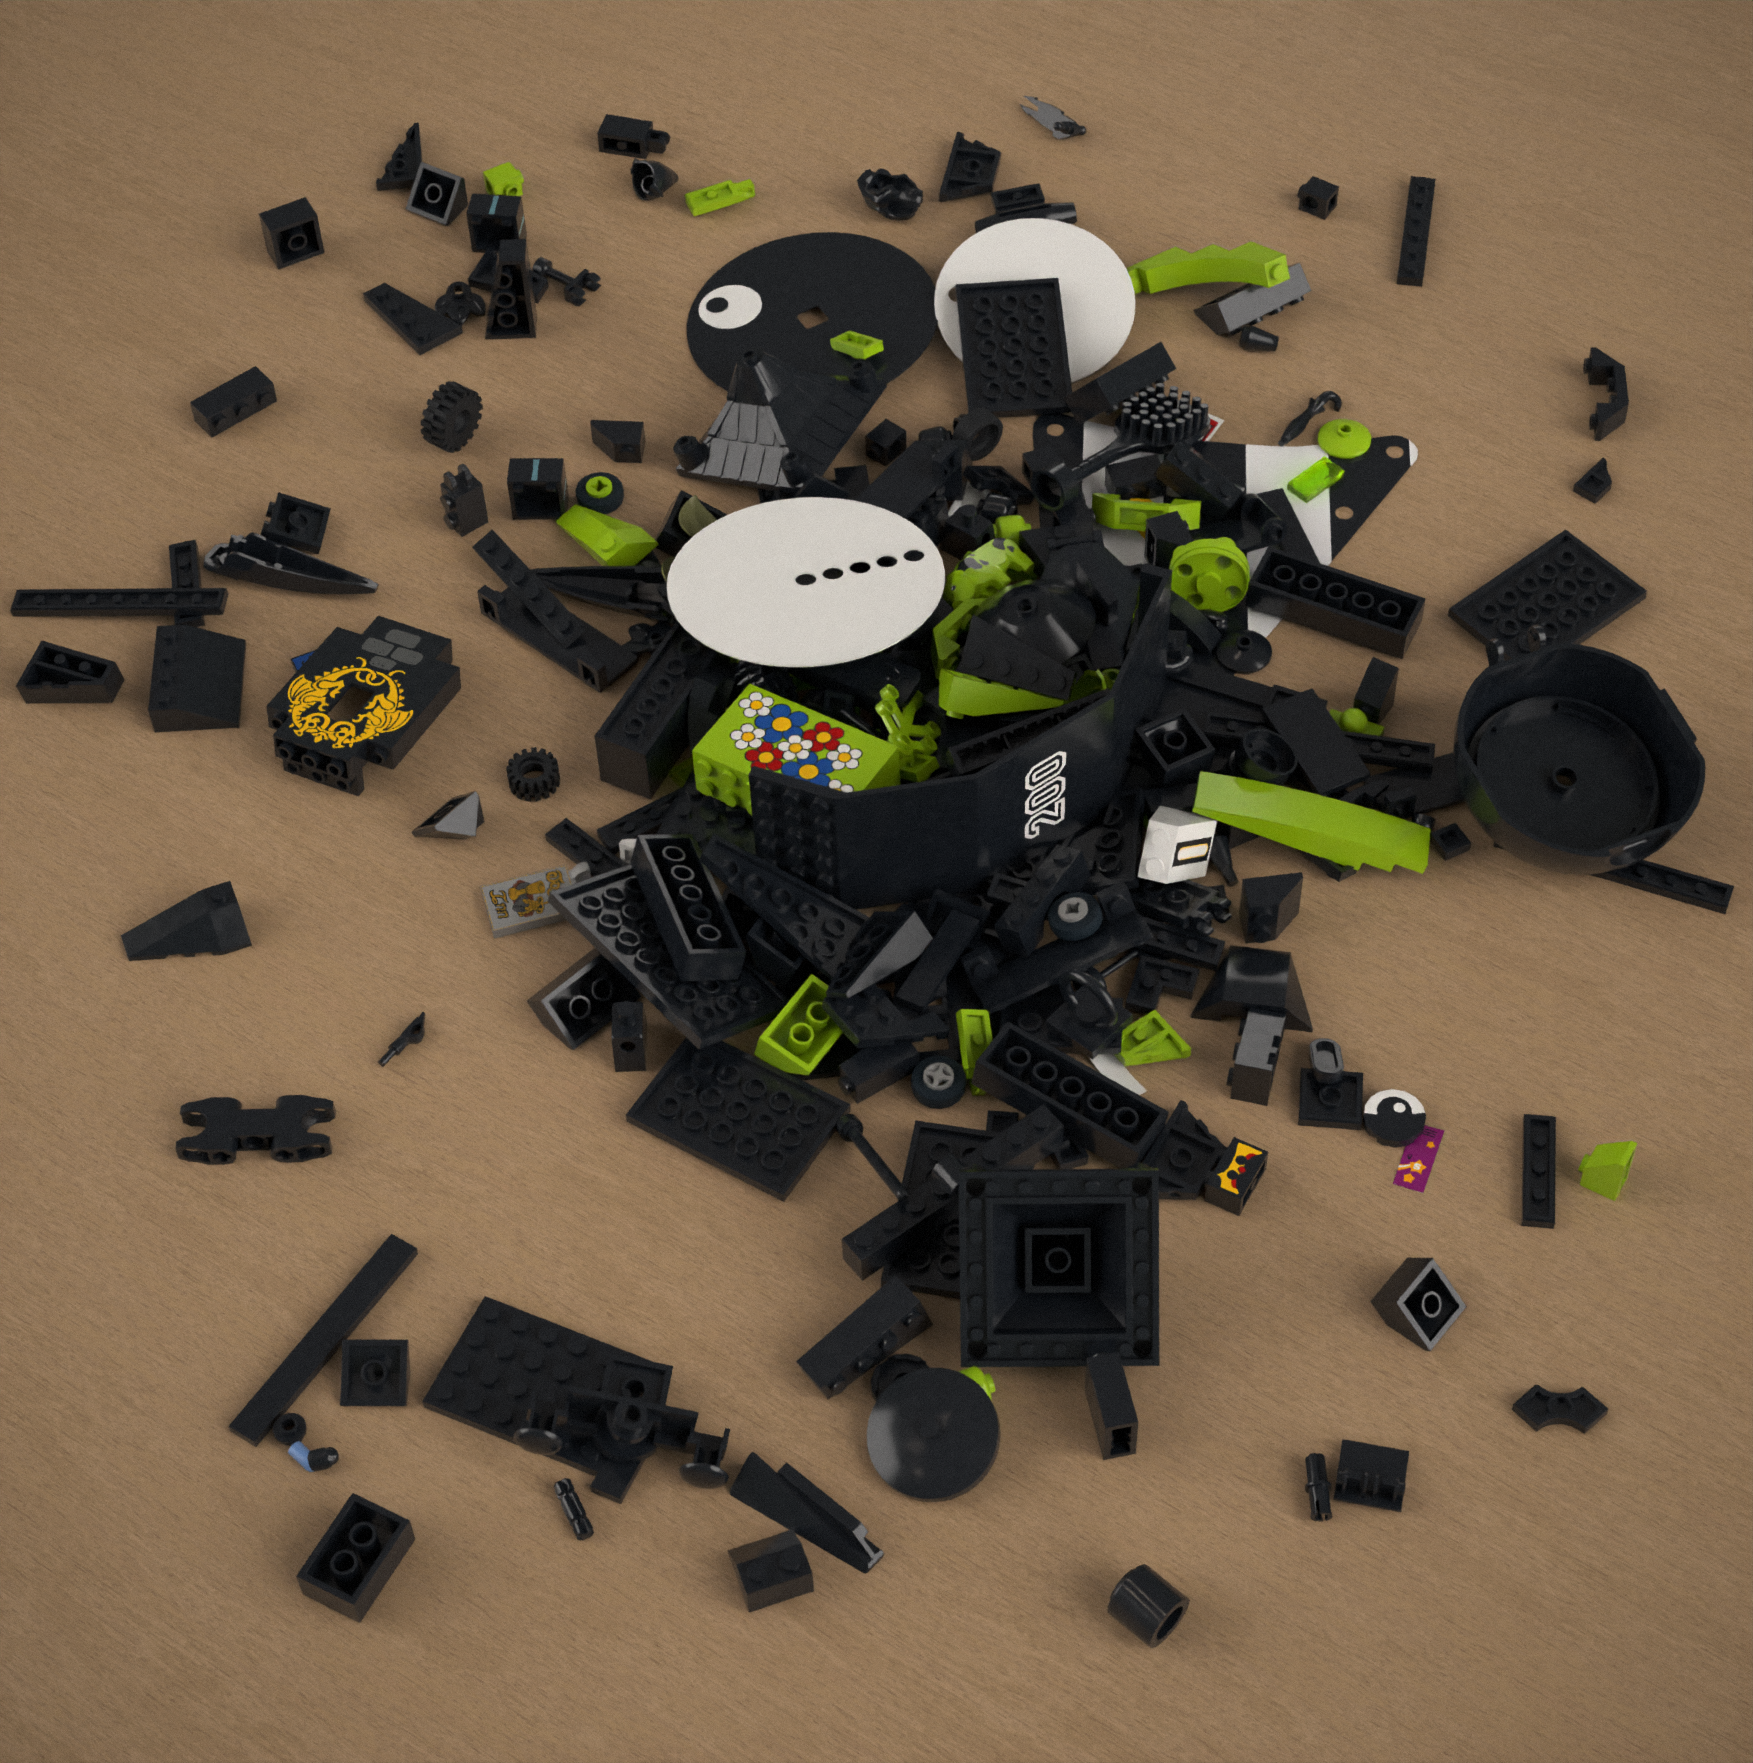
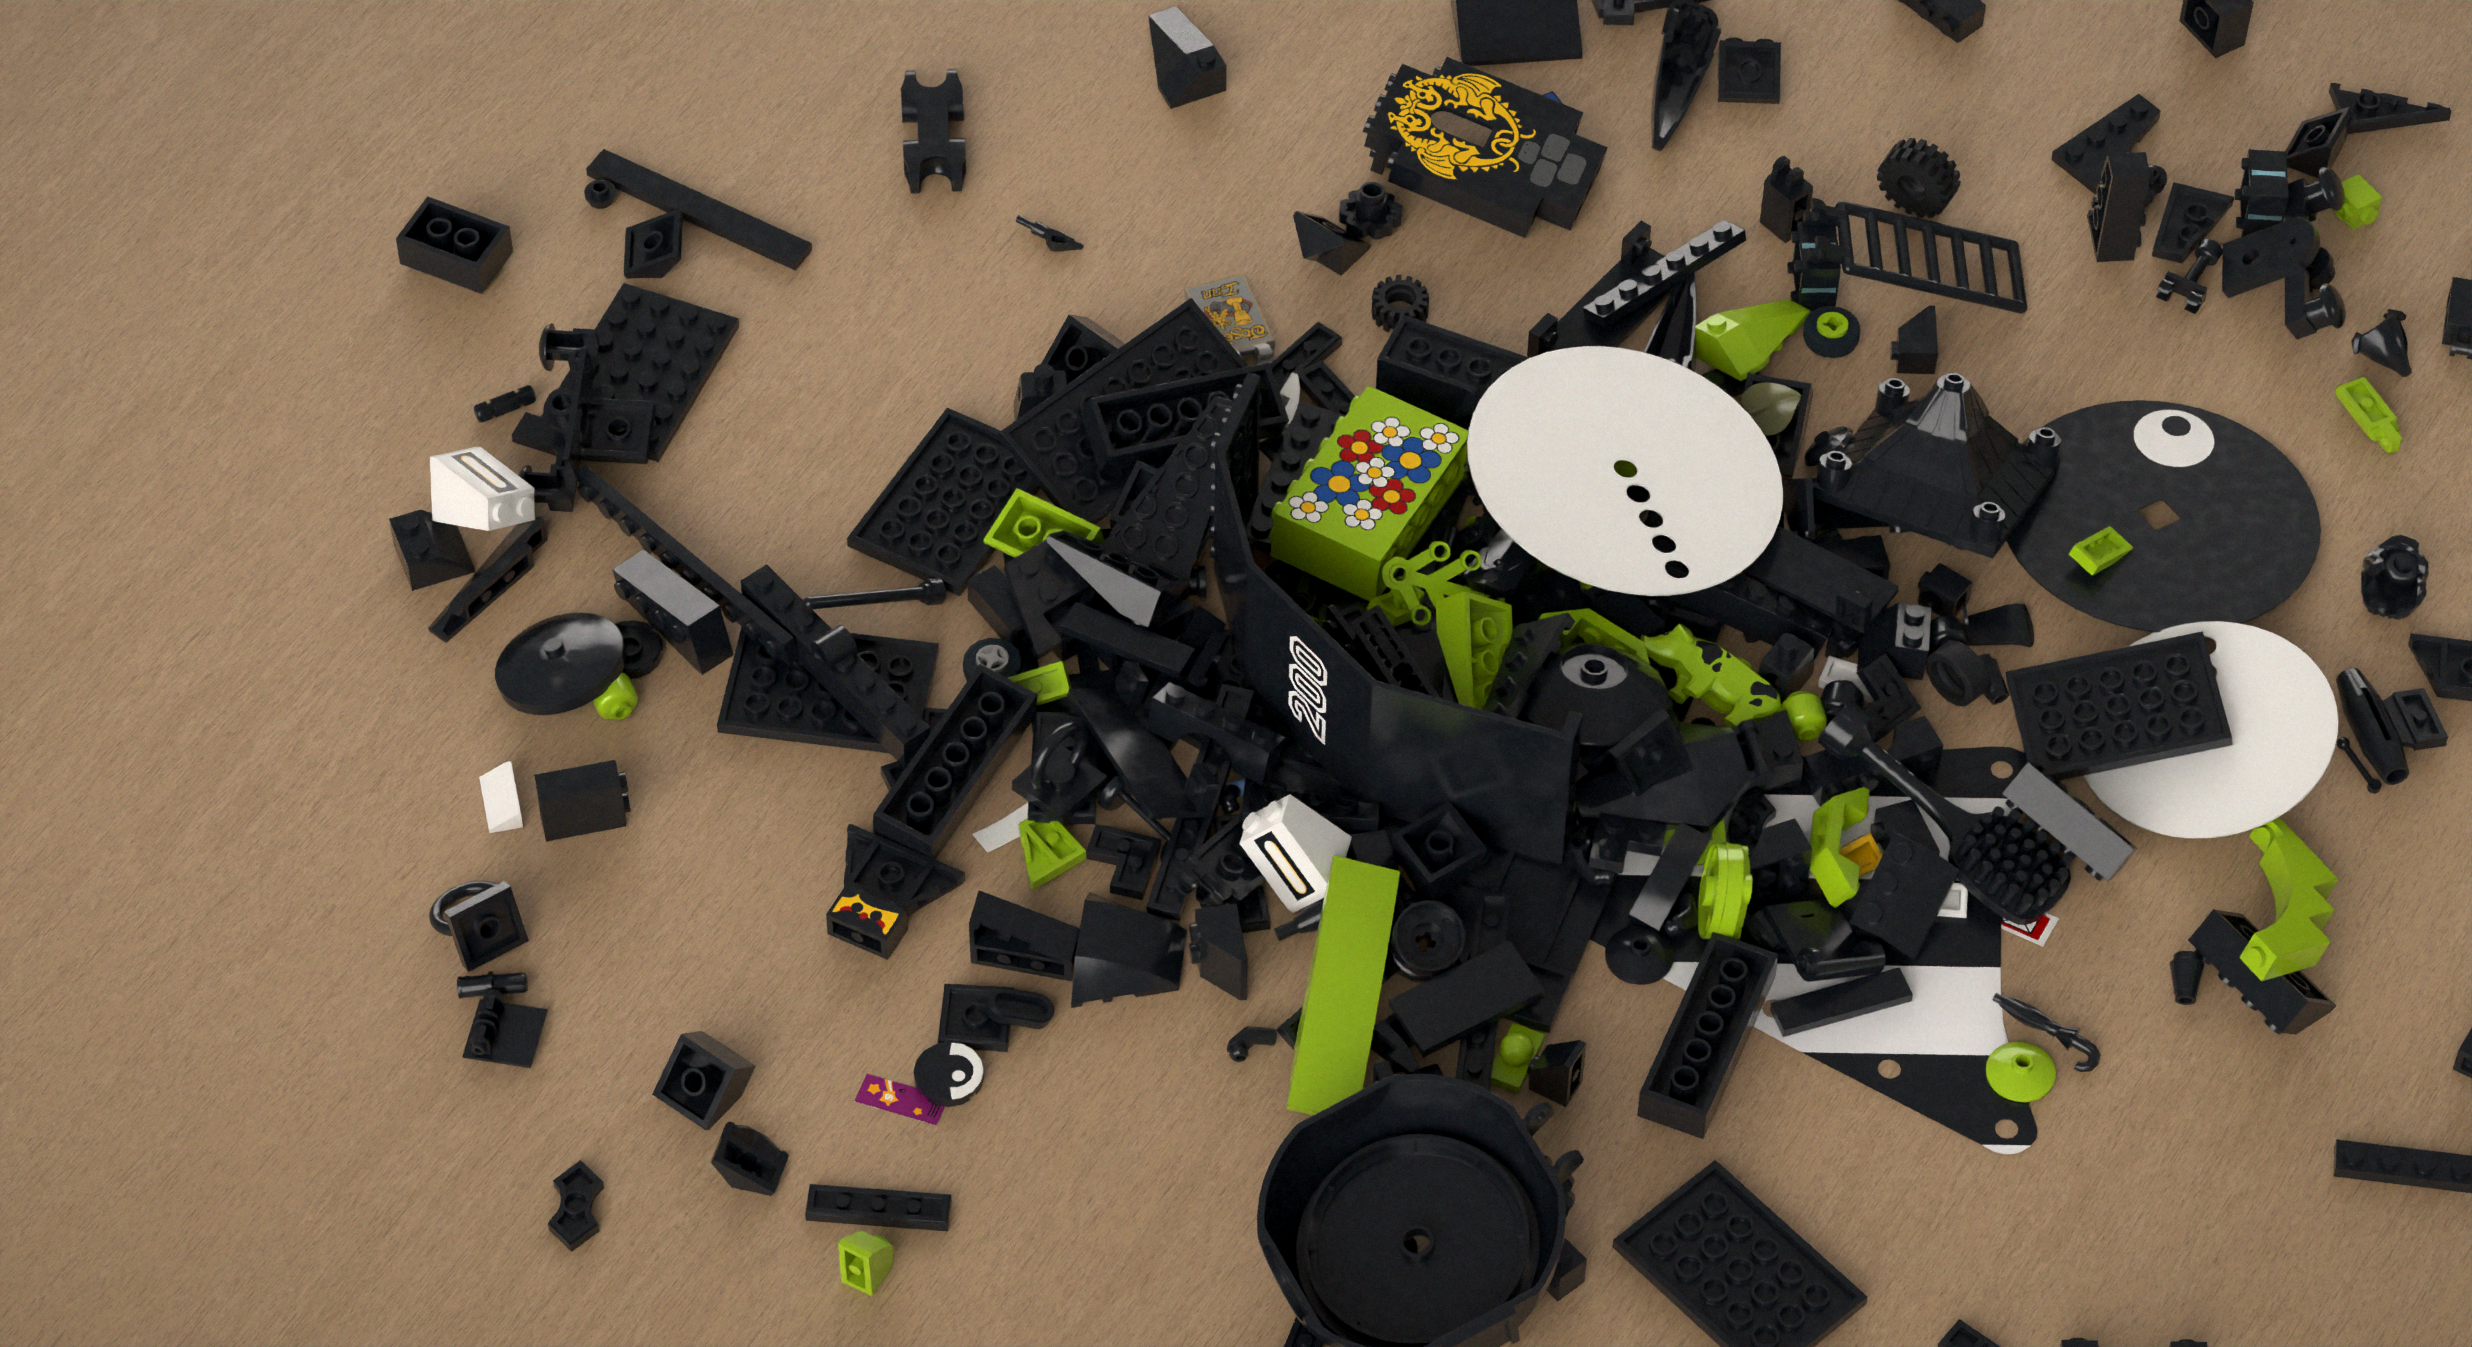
camera: 85 degrees right, 0 degrees up
(315, 1459) = (566, 212): black arm -> none
(419, 791) = (1370, 212): none -> black plant
(539, 399) = (1843, 254): none -> black bar
(570, 211) = (2292, 253): none -> black piece
(730, 494) = (1827, 441): none -> black piece
(730, 1499) = (478, 491): none -> white slope
(824, 1318) = (678, 558): none -> black plate
(916, 417) = (2000, 626): none -> black piece
(1058, 1266) = (710, 724): black piece -> none
(1075, 916) = (1181, 751): black wheel -> none
(1090, 1488) = (501, 799): none -> white slope
(1147, 1605) = (360, 831): black piece -> none
(1258, 1485) = (481, 925): none -> black tile
(1315, 479) = (1938, 1035): clear neon green tile -> none
(1346, 902) = (1246, 1038): none -> black arm
(1501, 1262) = (748, 1159): none -> black slope

